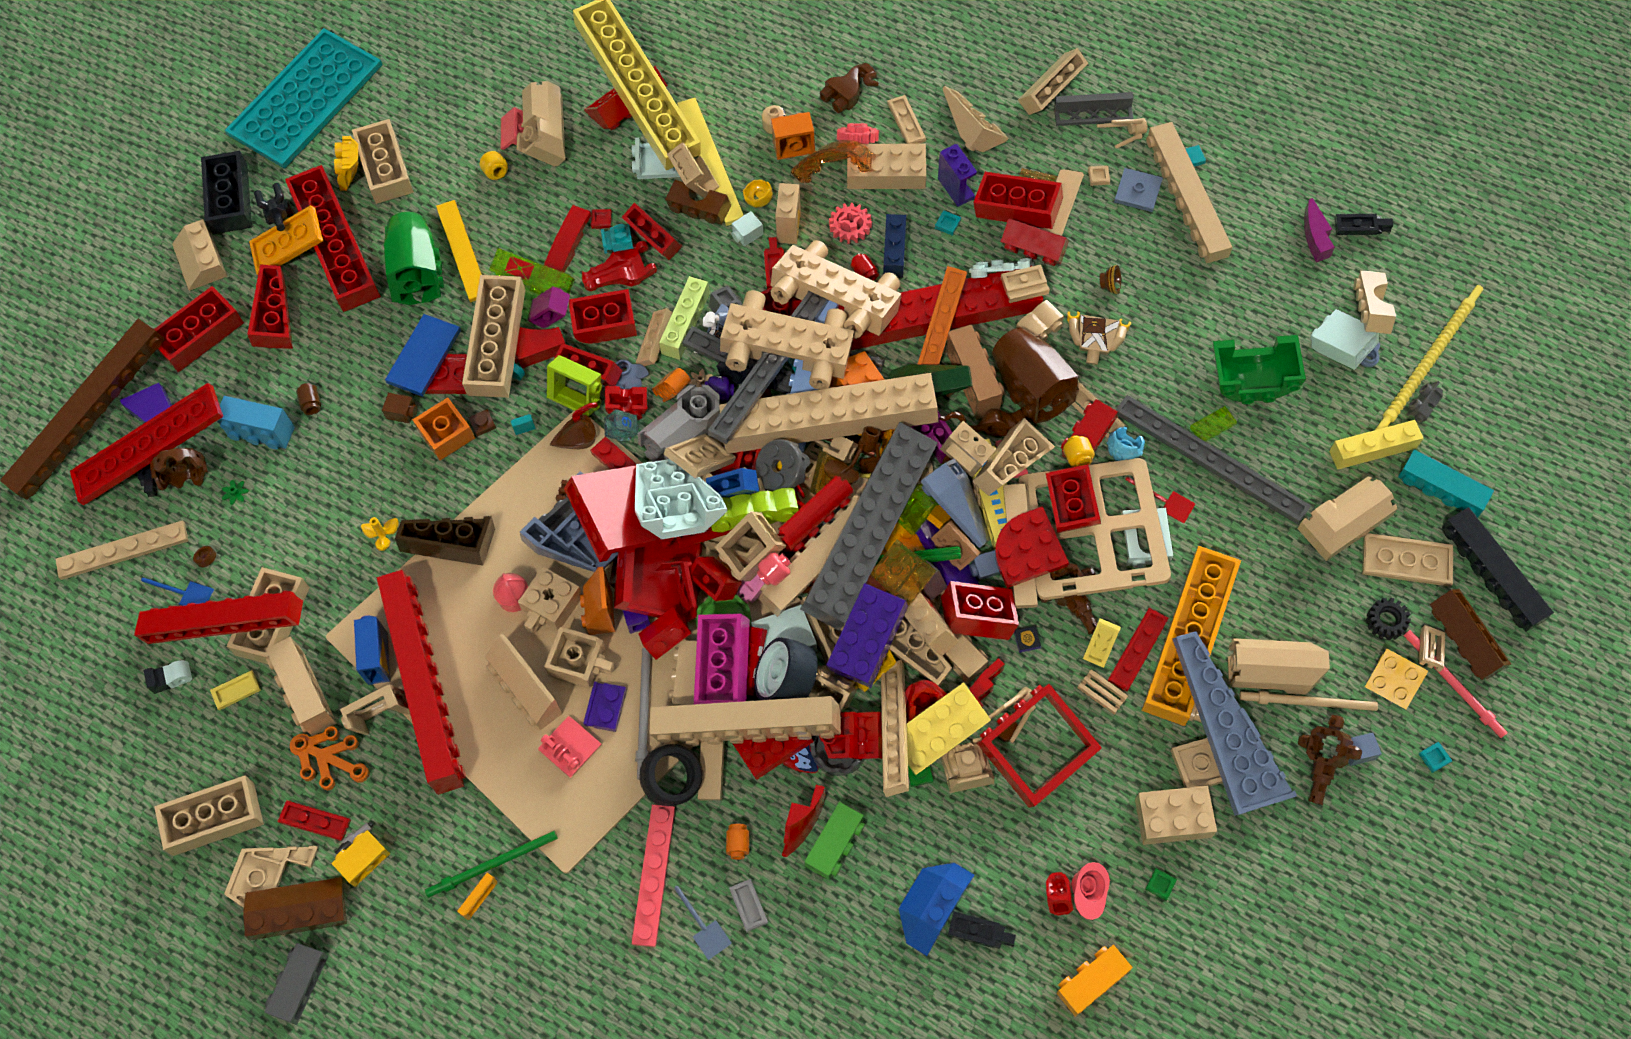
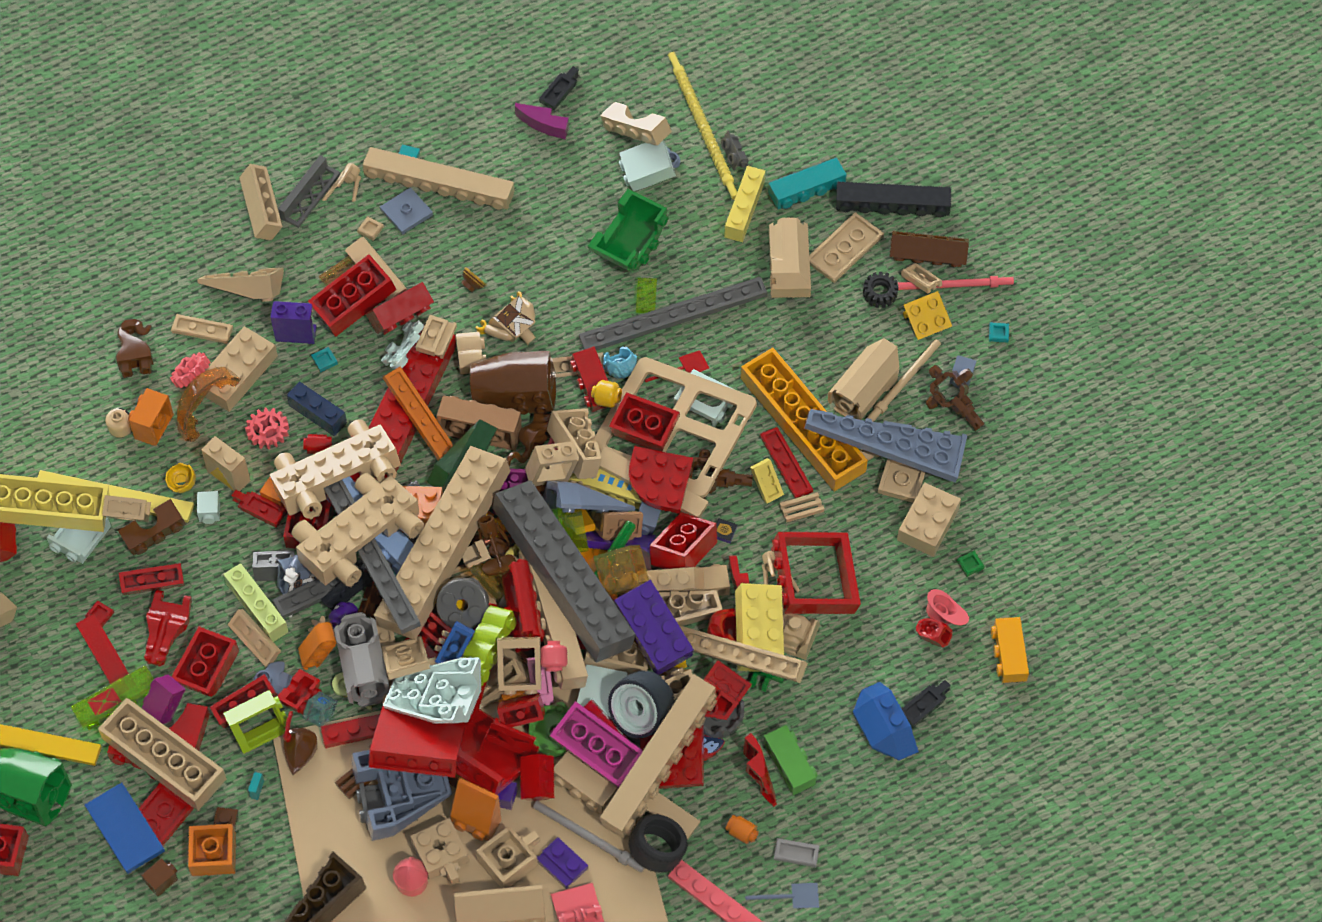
camera: 60 degrees left, 5 degrees down
(617, 238) = (134, 610): teal plate -> none

